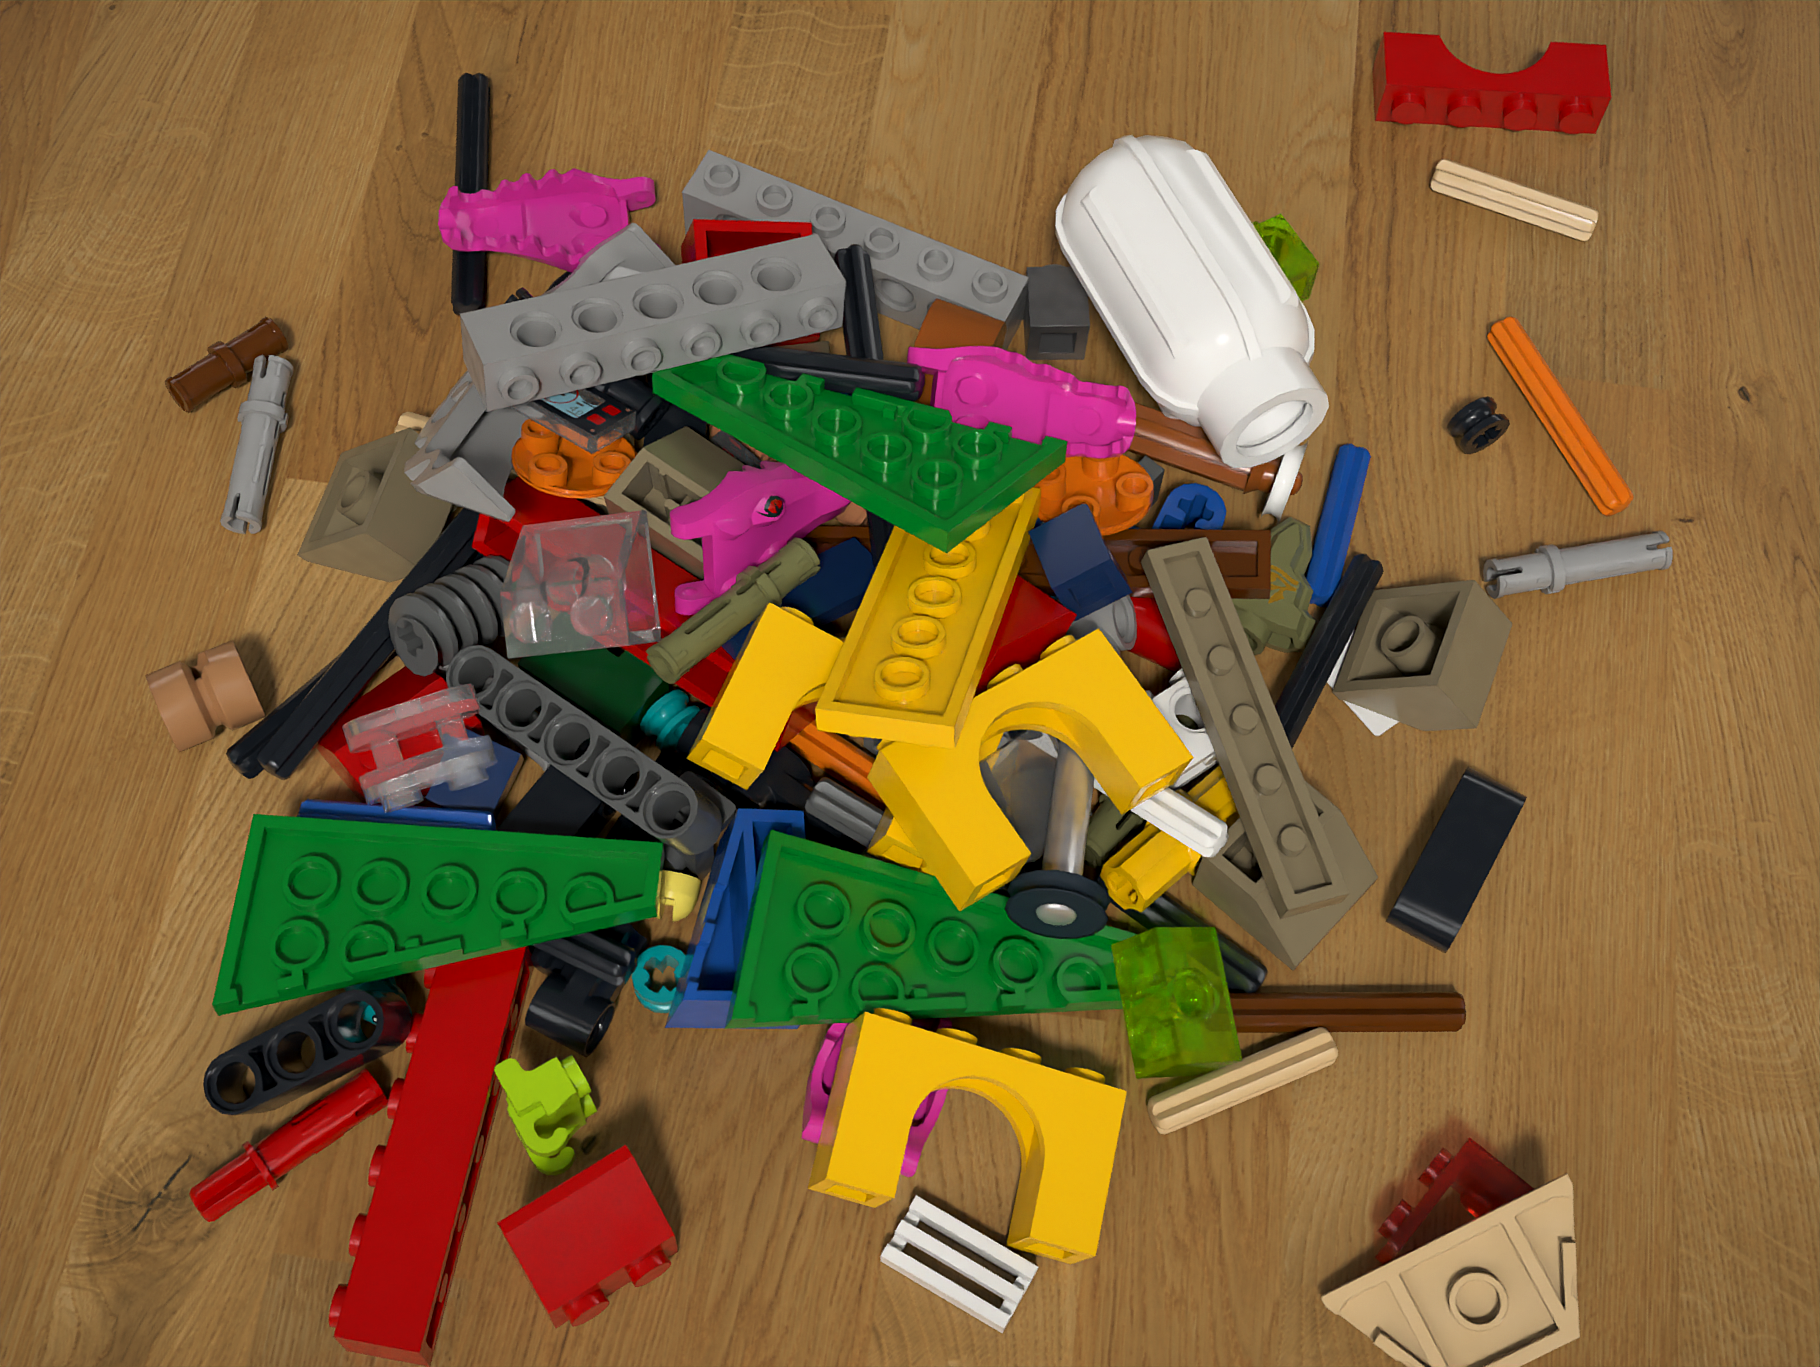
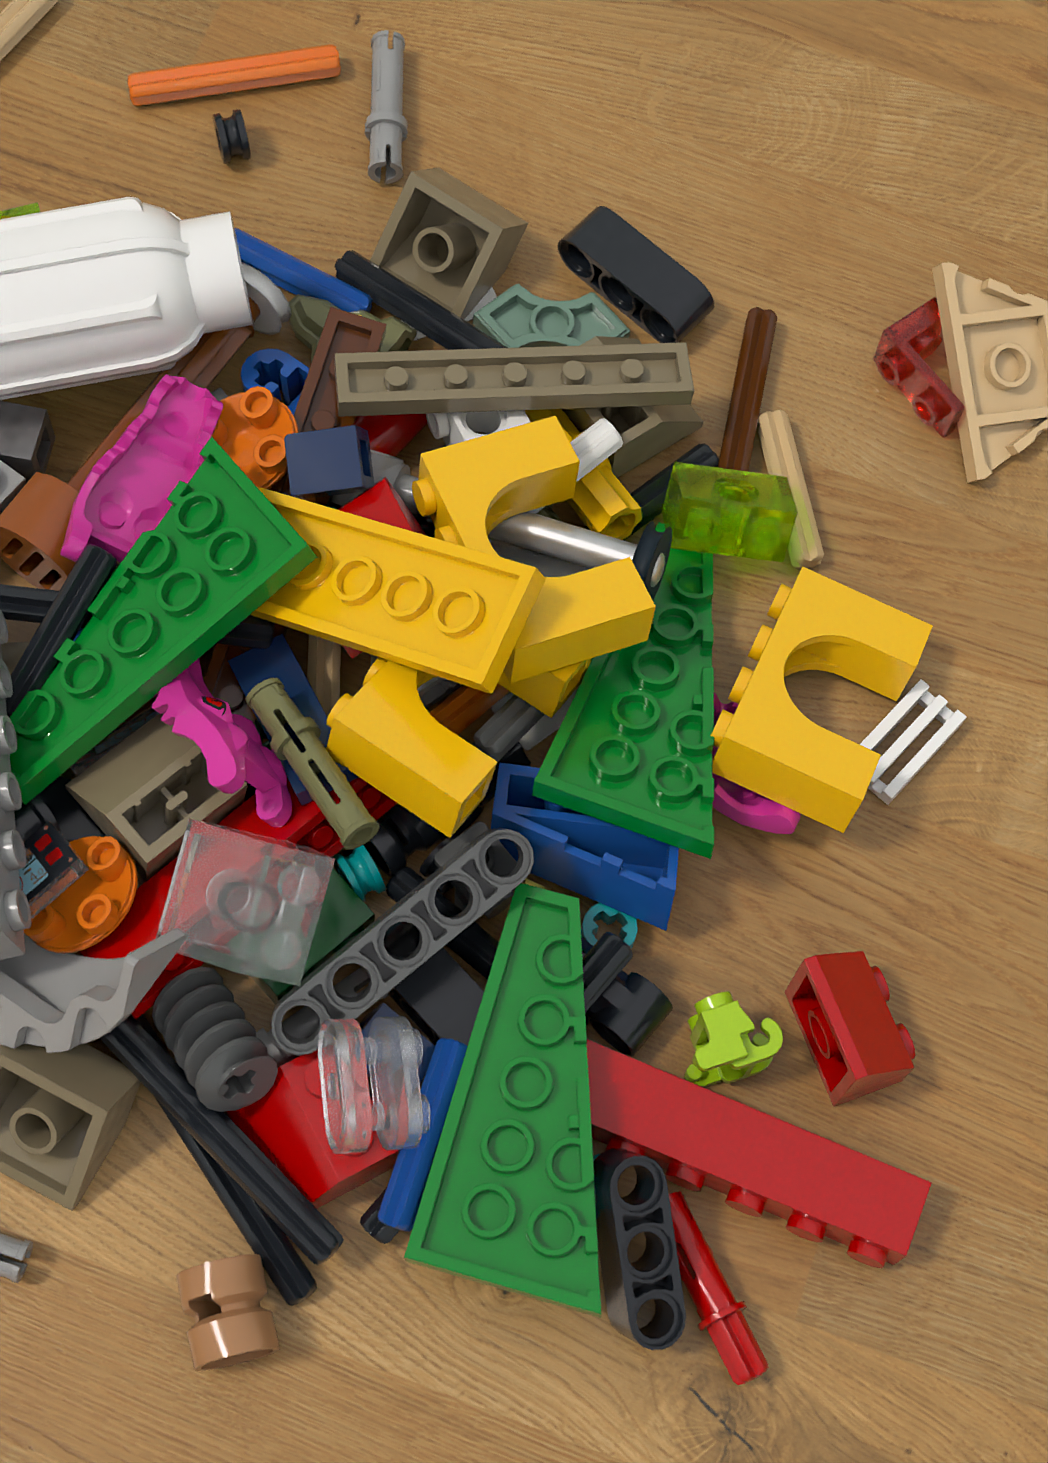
camera: 80 degrees left, 5 degrees up
(1359, 760) = (531, 321): none -> sand green tile

